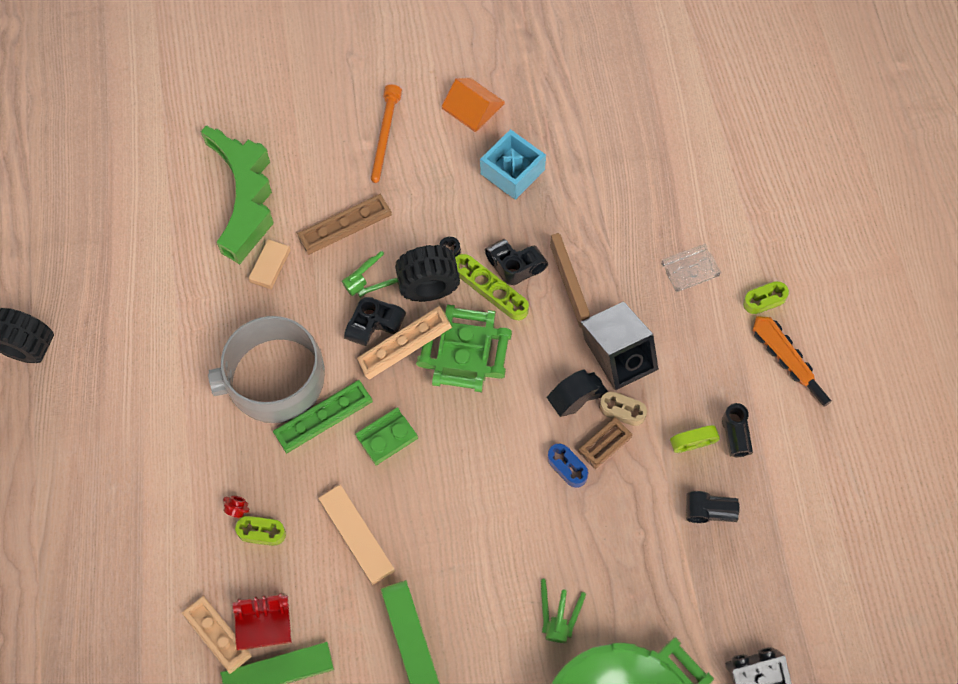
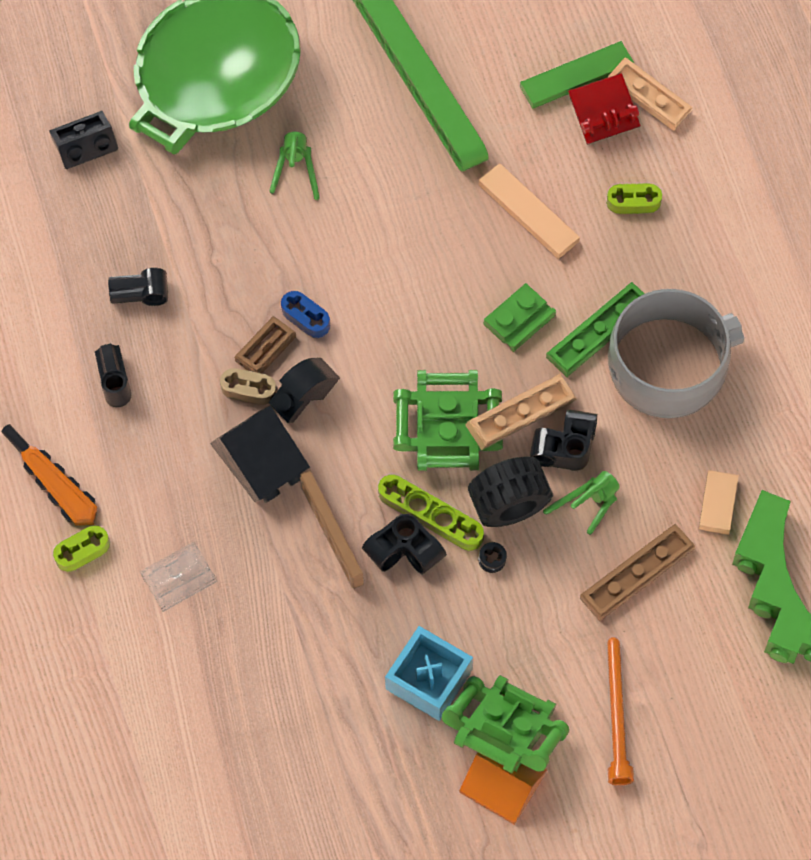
camera: 170 degrees right, 0 degrees up
(235, 506) = (668, 206): red plate -> none
(466, 119) = (505, 725): none -> bright green brick
(694, 439) = (161, 359): lime beam -> none

